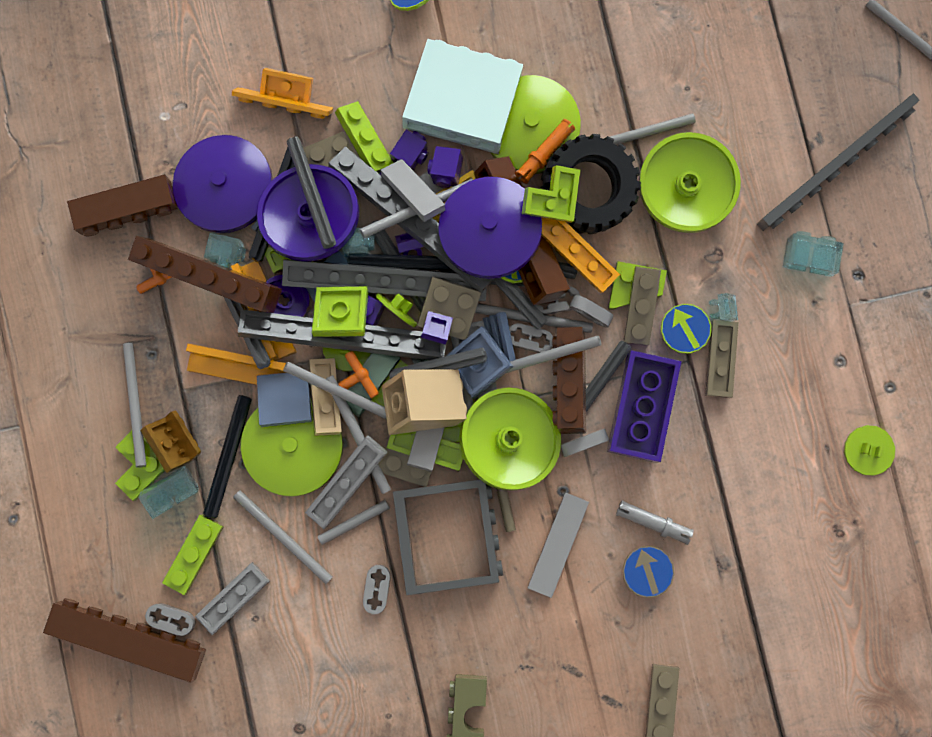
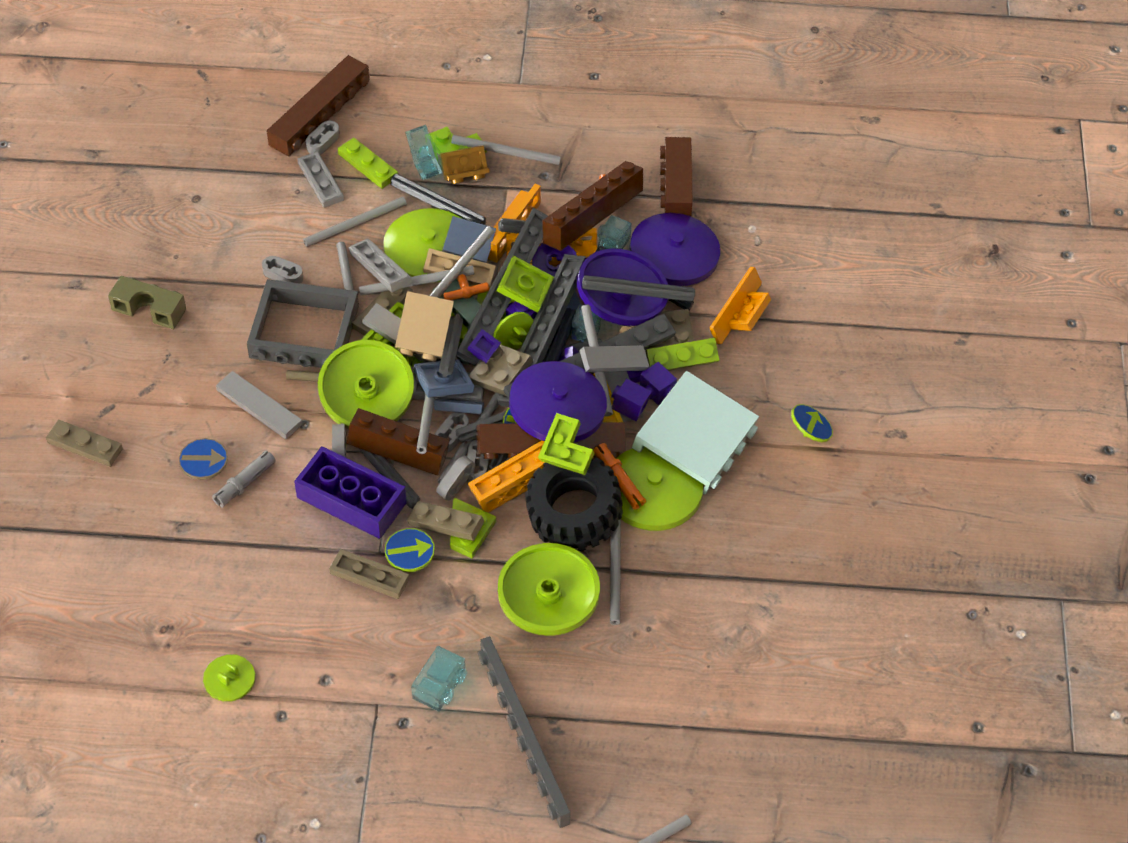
camera: 105 degrees right, 30 degrees down
(727, 307) = (416, 590): clear light blue tile -> none

